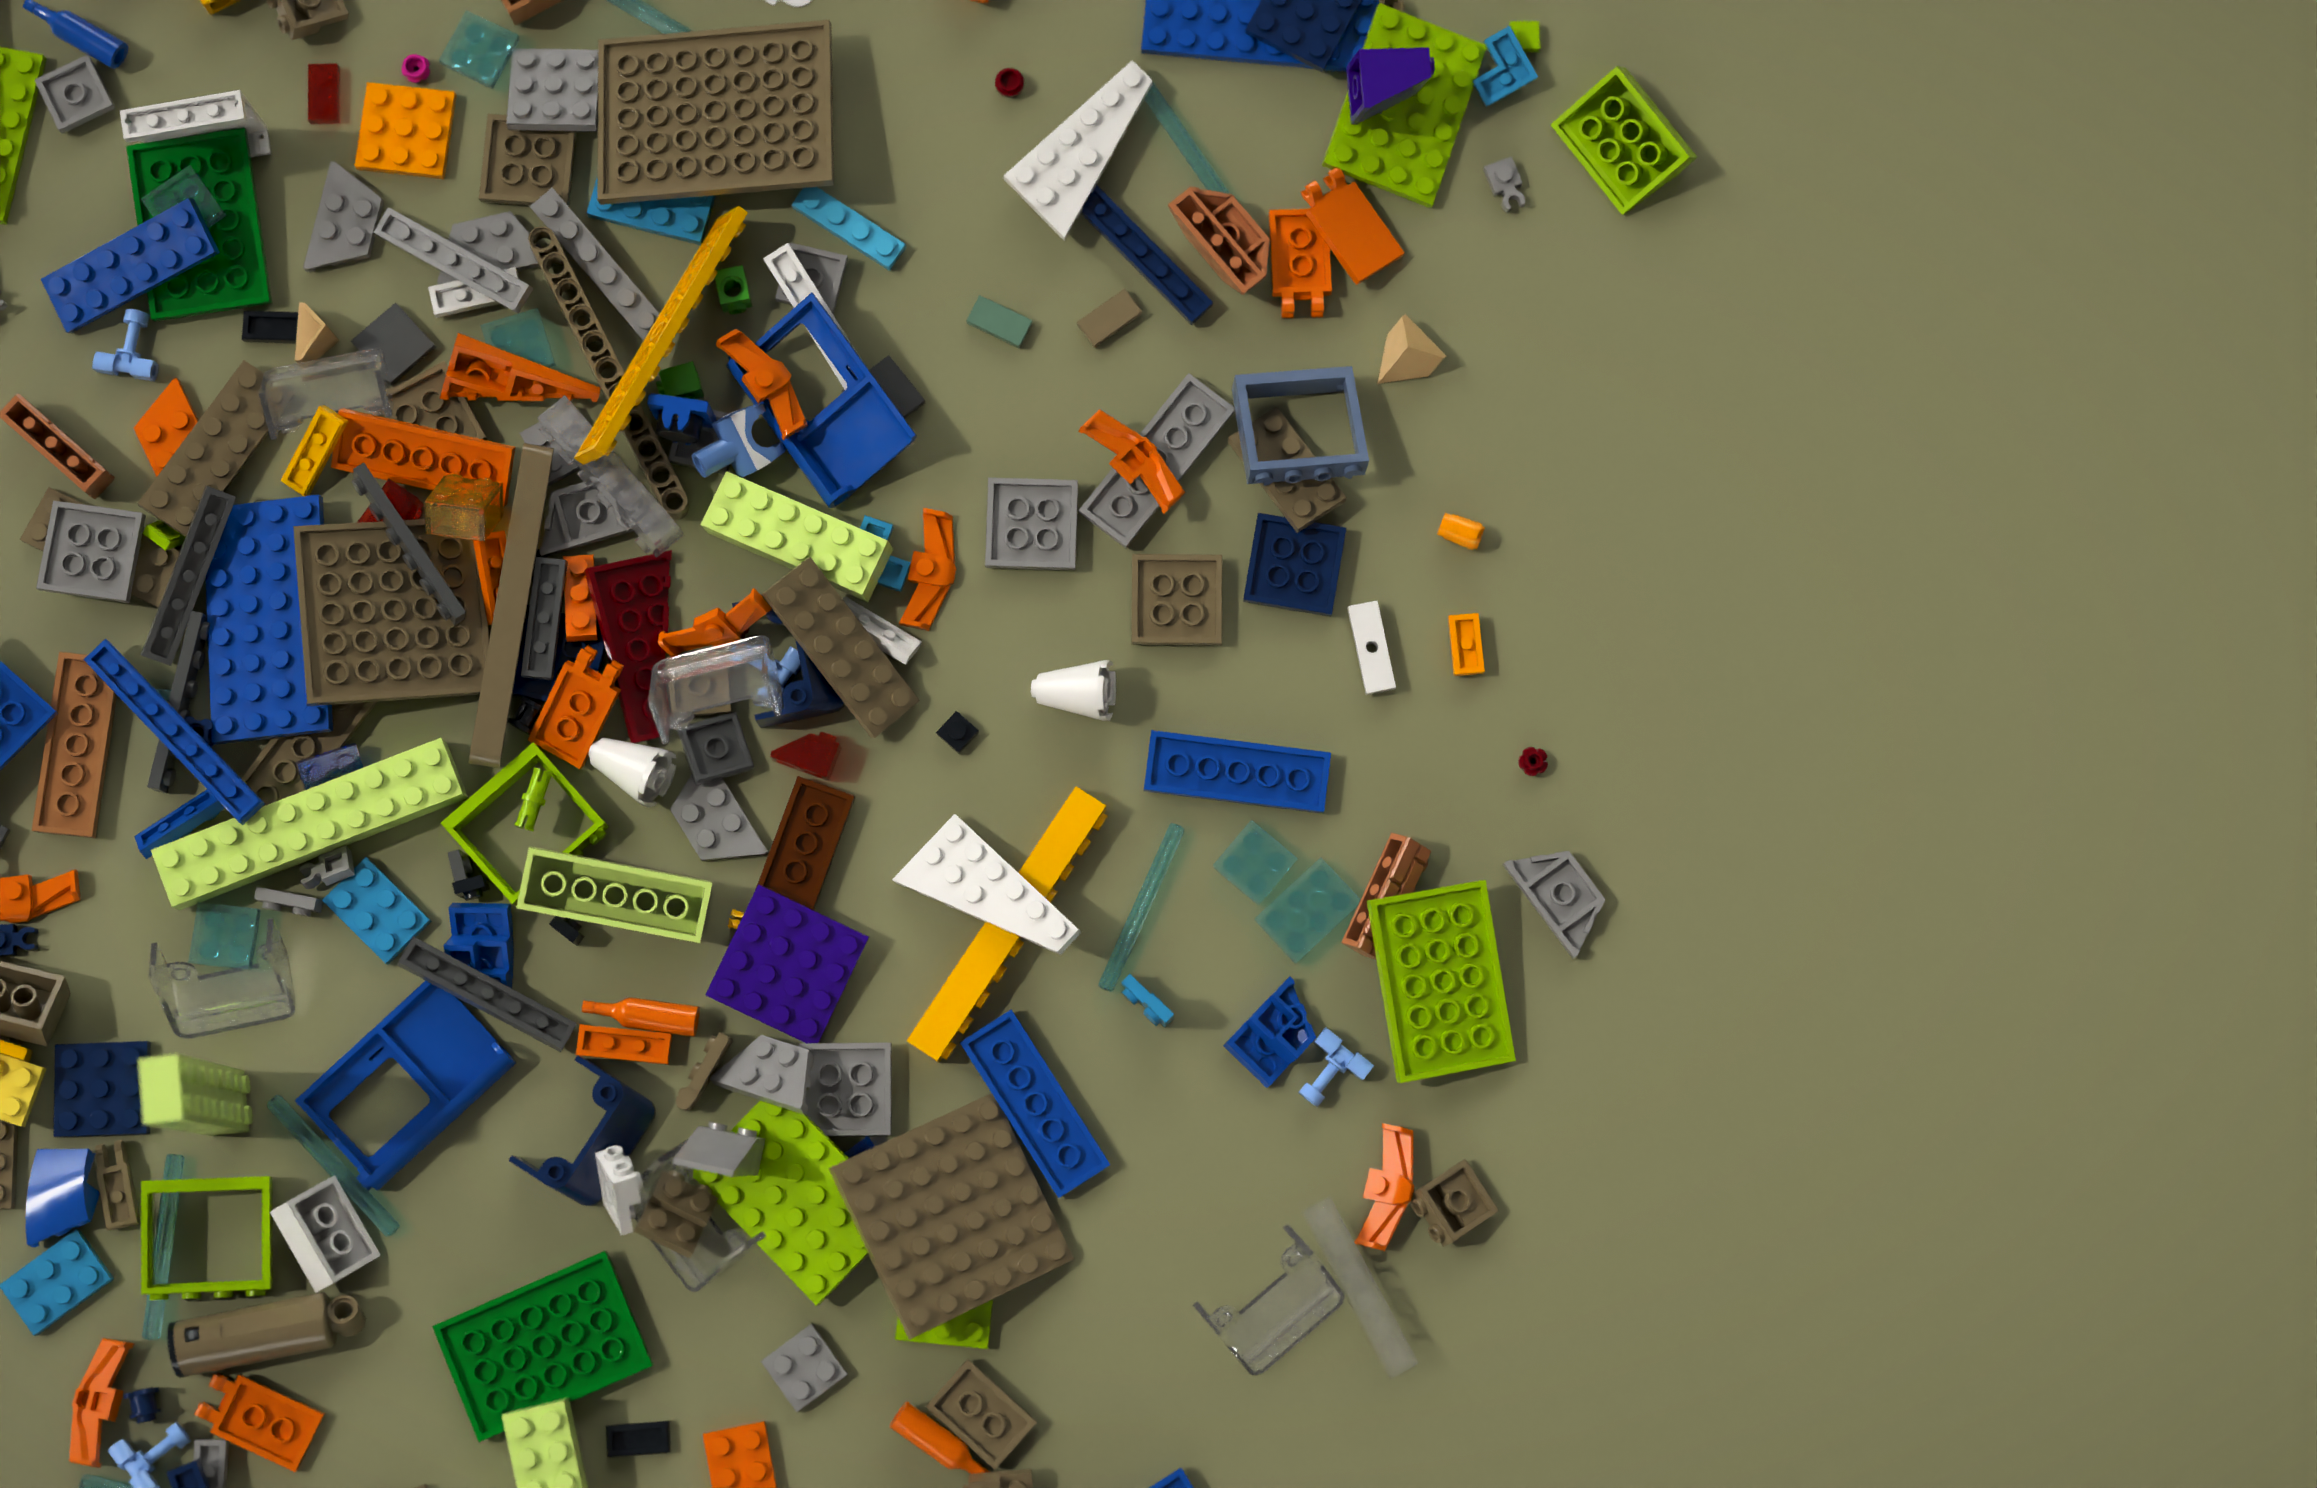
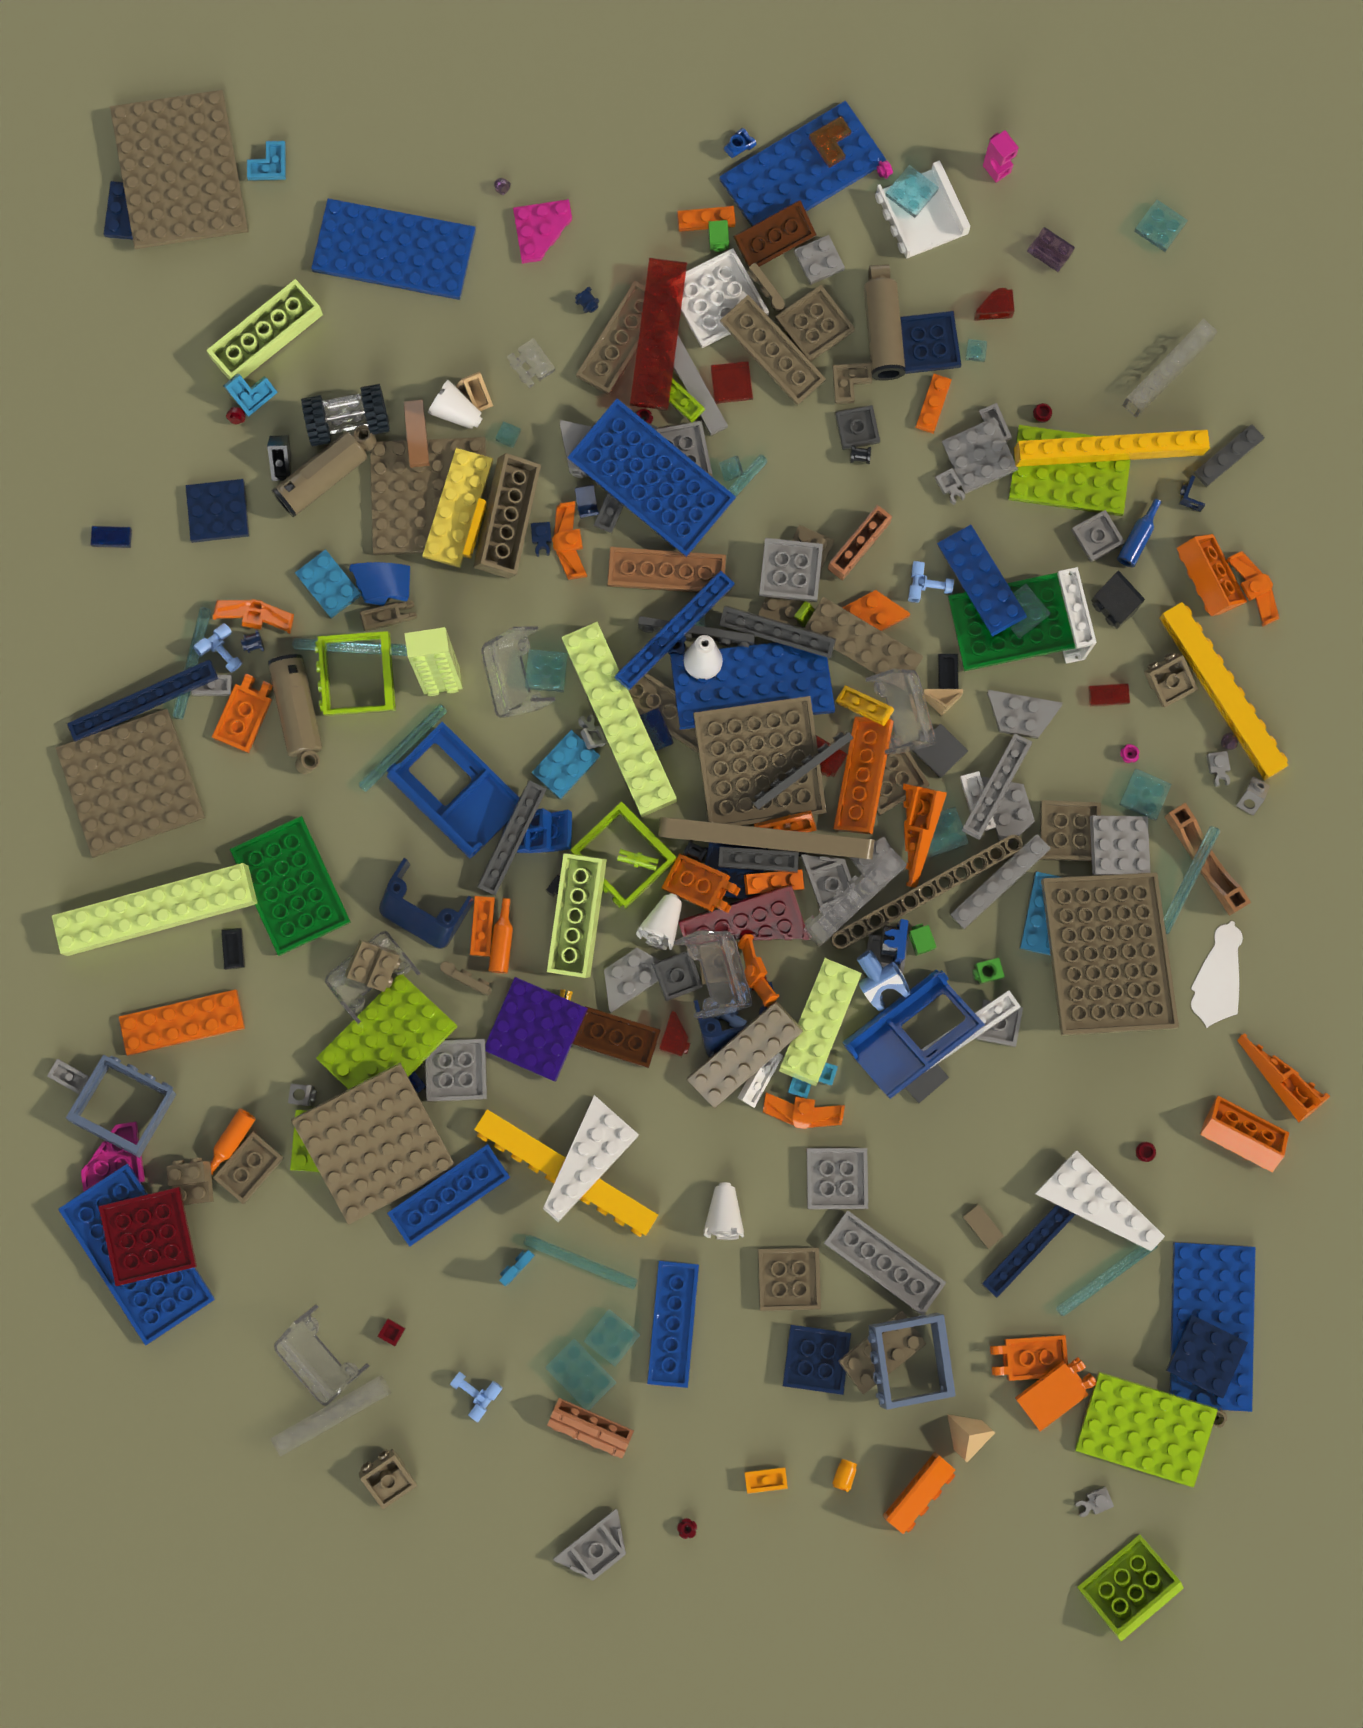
camera: 90 degrees right, 0 degrees up
(99, 1089) = (449, 601): dark blue plate -> none
(176, 64) = (1117, 600): none -> black slope
(178, 823) = (617, 635): blue plate -> none
(221, 688) = (703, 658): none -> white cone
(275, 900) = (570, 702): light grey plate -> none
(325, 1233) = (358, 746): white slope -> none
(405, 130) = (1086, 749): light orange plate -> none
(460, 865) = (594, 816): dark grey plate -> none
(464, 507) = (828, 804): clear yellow brick -> none
(471, 887) = (580, 823): black plate -> none
(619, 1186) = (388, 928): white plate -> none
(659, 339) = (947, 924): yellow plate -> none
(722, 1151) = (409, 993): light grey slope -> none
(766, 380) = (925, 996): orange plate -> none
(770, 1073) = (464, 1021): light grey wing -> none
(804, 1367) = (278, 1052): light grey plate -> none
(849, 226) = (1036, 1048): medium azure plate -> none
(872, 1317) = (310, 1094): none -> light grey bracket
(957, 732) = (694, 1134): black plate -> none
(999, 321) = (976, 1151): sand green tile -> none
(1135, 458) = (883, 1247): orange plate -> none
(1223, 236) = (1043, 1304): nougat wedge -> none
(1238, 1194) = (391, 1332): none -> dark red plate
(1273, 1035) = (497, 1353): blue slope -> none
(1367, 630) = (774, 1411): white tile -> none
(1385, 78) = (1159, 1414): dark purple slope -> none
(1389, 1188) = (396, 1434): orange plate -> none
(1441, 981) = (533, 1467): lime plate -> none
(1487, 425) = (919, 1493): none -> orange slope
(1512, 68) = (1175, 1505): dark azure plate -> none
(1527, 34) = (1202, 1514): lime tile -> none

